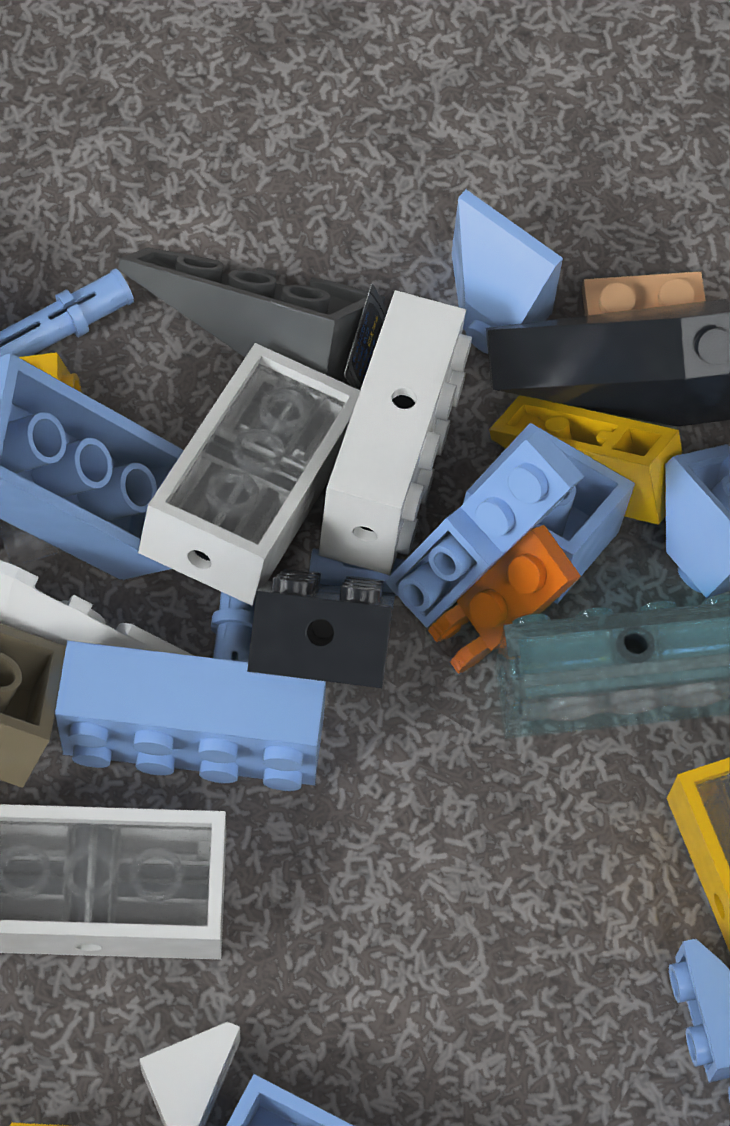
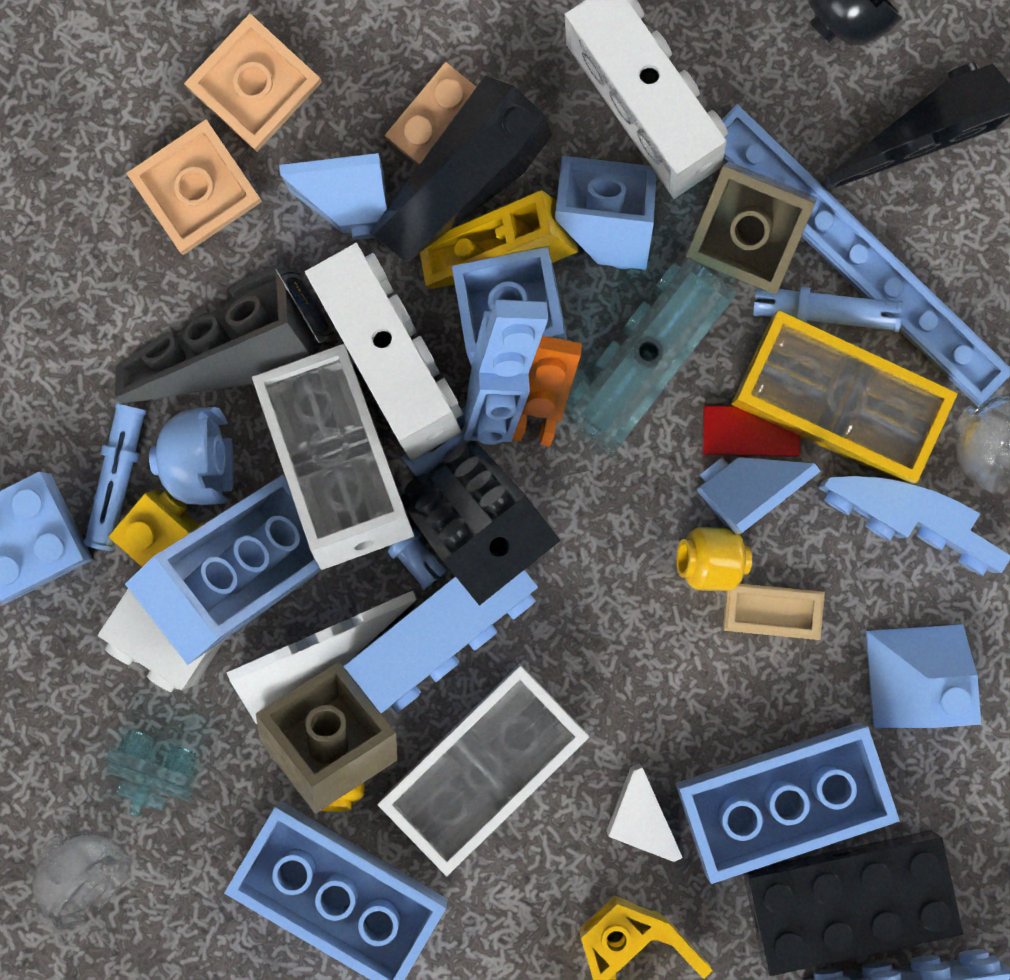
camera: 45 degrees left, 20 degrees up
(136, 365) = (194, 458): none -> light blue cylinder
(372, 169) = (194, 187): none -> light nougat plate
(507, 913) = (713, 559): none -> yellow head
(513, 137) = (253, 82): none -> light nougat plate
(516, 1025) = (774, 611): none -> tan tile
(614, 883) = (751, 488): none -> light blue slope
(650, 835) = (740, 433): none -> red tile

